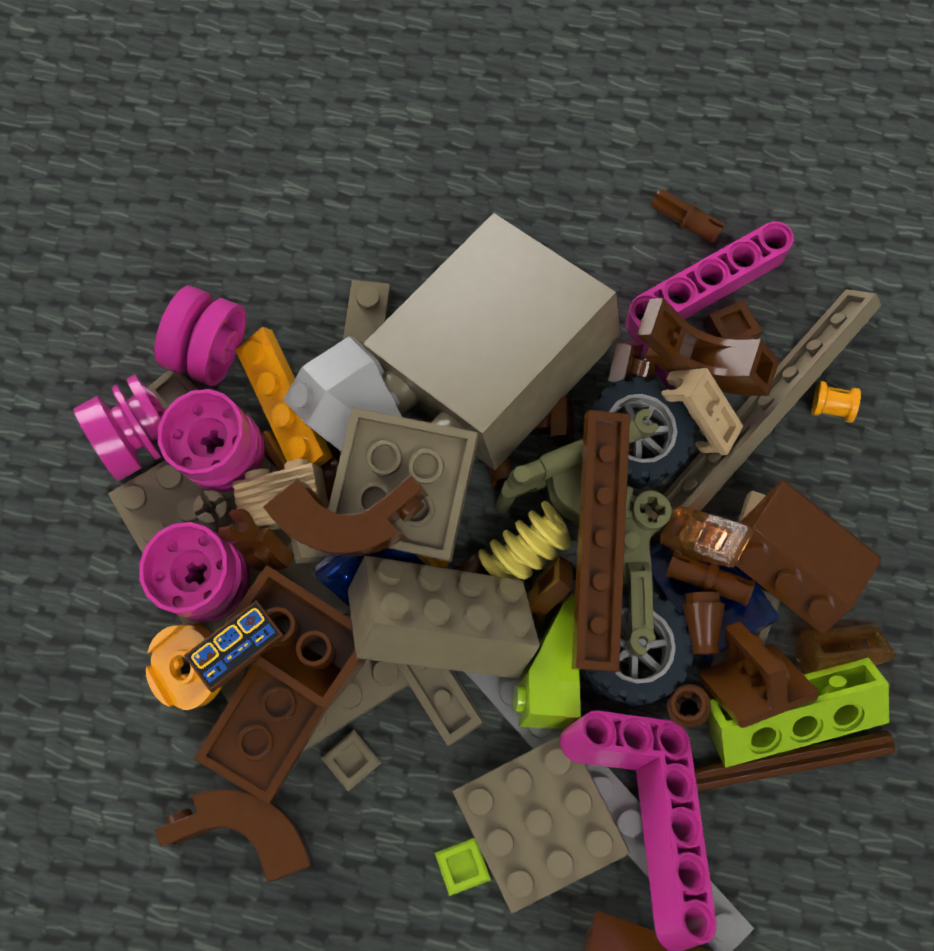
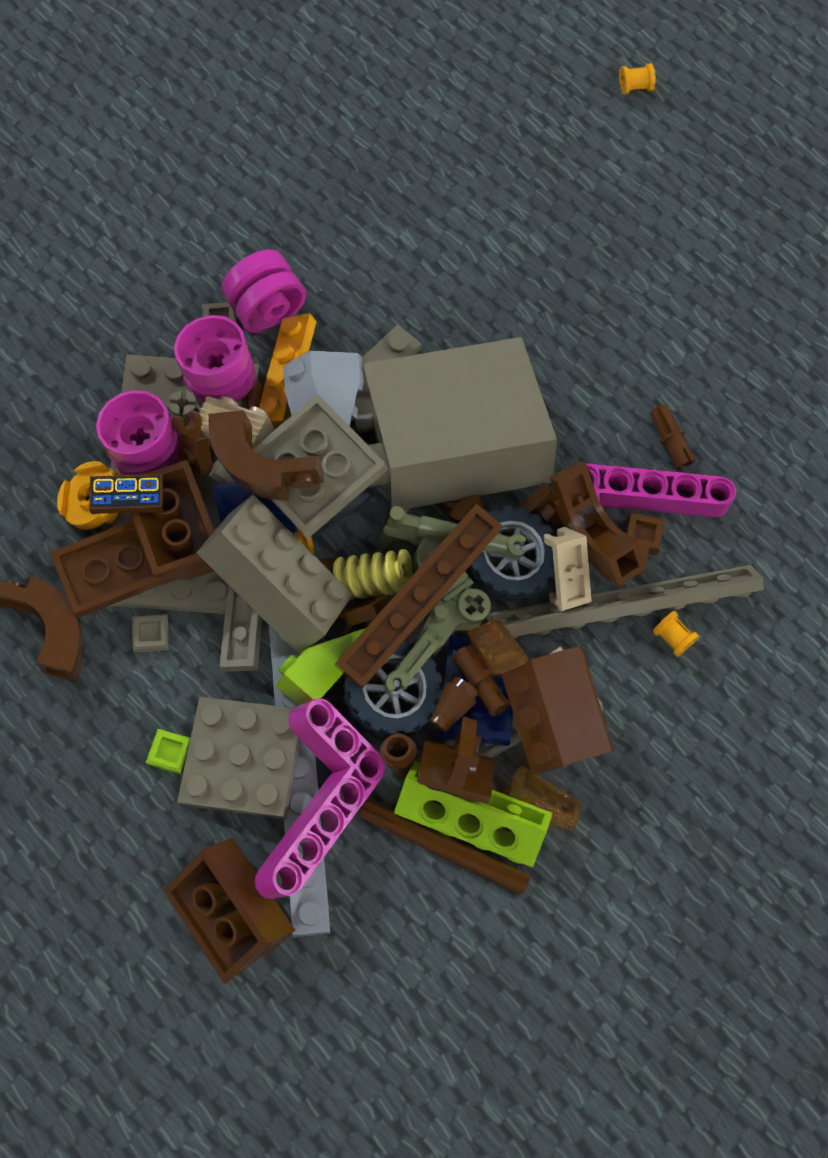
camera: 30 degrees right, 5 degrees down
(124, 428) = (162, 316): dark pink wheel -> none

